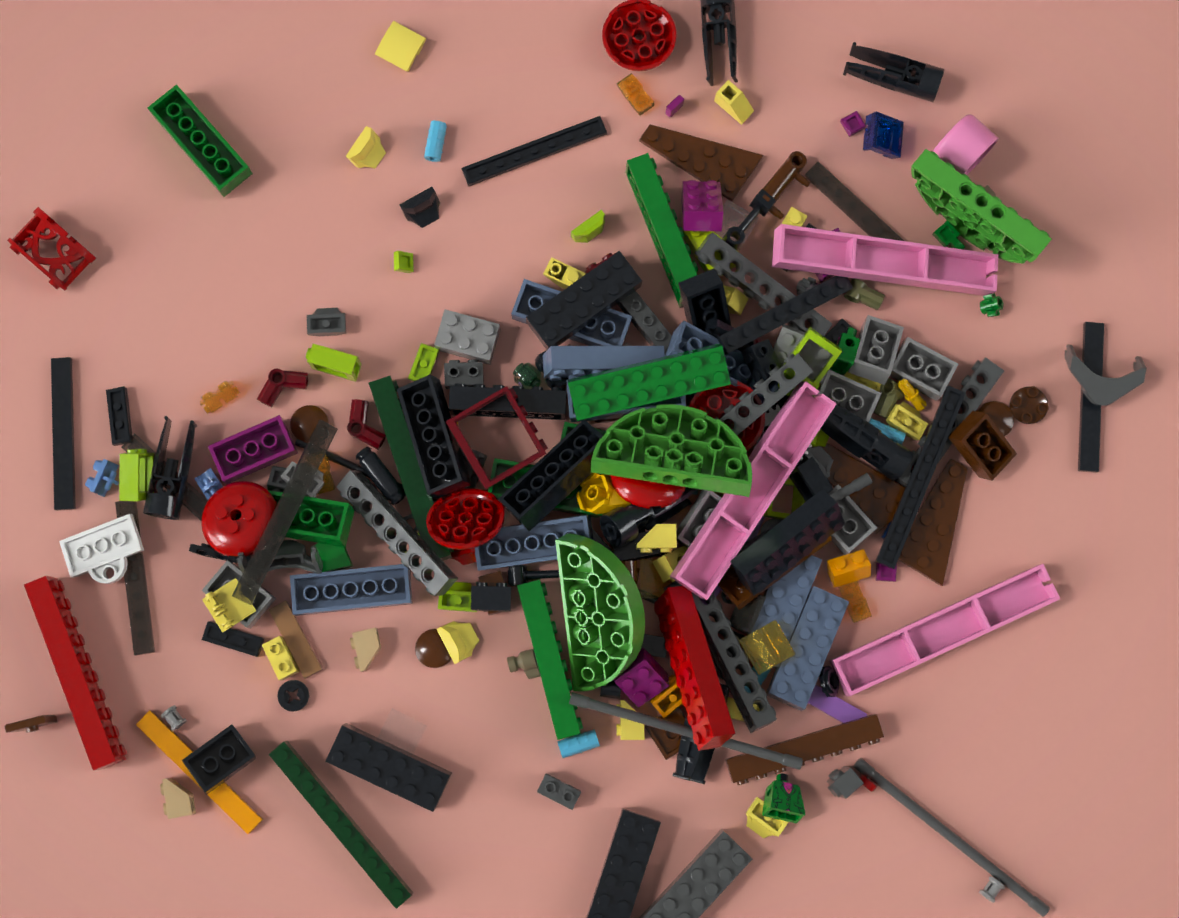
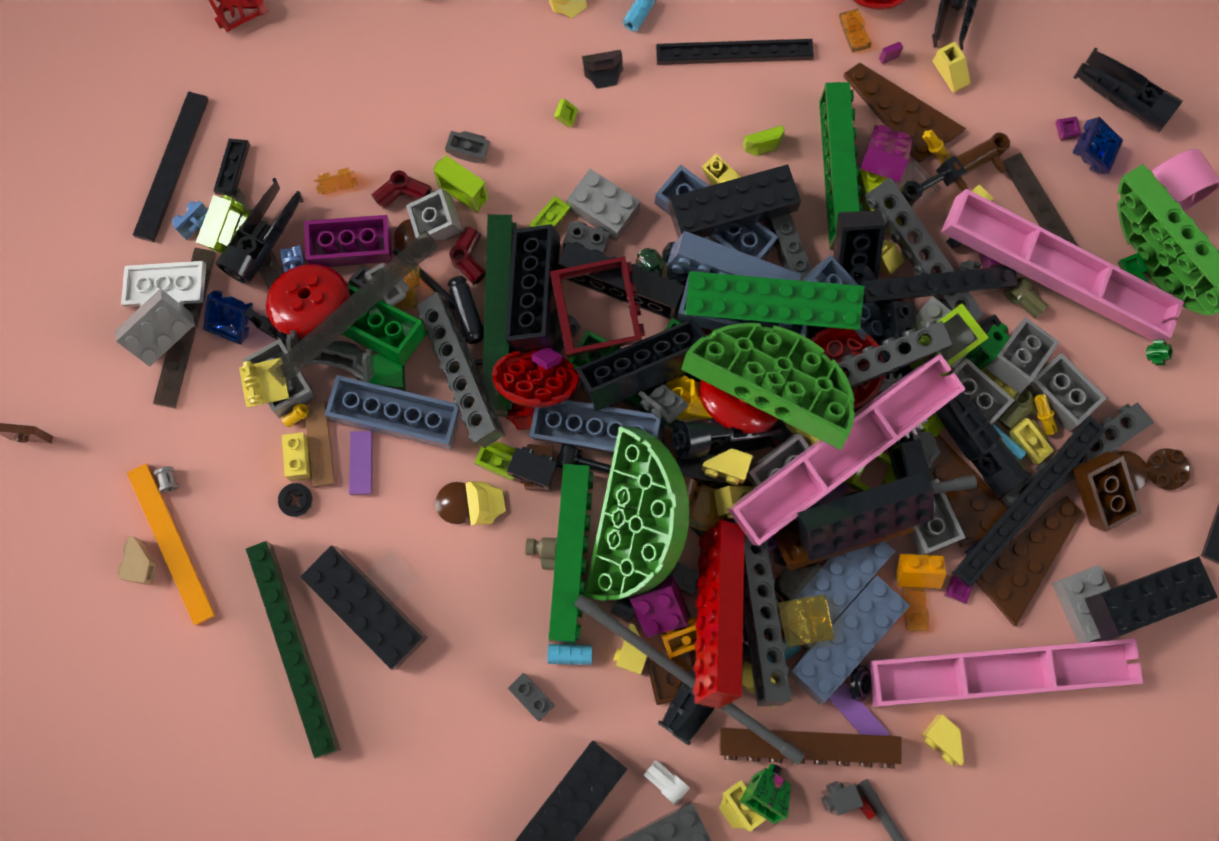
camera: 25 degrees right, 5 degrees down
(75, 672) = (86, 399): red brick -> none
(112, 589) = (155, 327): none -> light grey brick
(171, 556) = (226, 317): none -> clear blue brick
(219, 759) = (193, 536): black brick -> none
(233, 639) = (257, 422): black tile -> none
(268, 618) = (299, 412): none -> yellow pin
(321, 400) = (436, 215): none -> light grey slope
(338, 642) = (360, 463): none -> medium lavender tile
(367, 646) = (388, 476): tan slope -> none
(469, 497) = (547, 358): none -> magenta tile
(586, 504) = (663, 403): none -> dark grey bracket
(699, 822) = (670, 785): none -> white piece
(742, 183) = (936, 145): none -> yellow axle
(913, 701) = (946, 738): none -> light yellow slope
(997, 546) = (1071, 595): none -> light grey brick
(1045, 525) = (1150, 598): none -> black brick

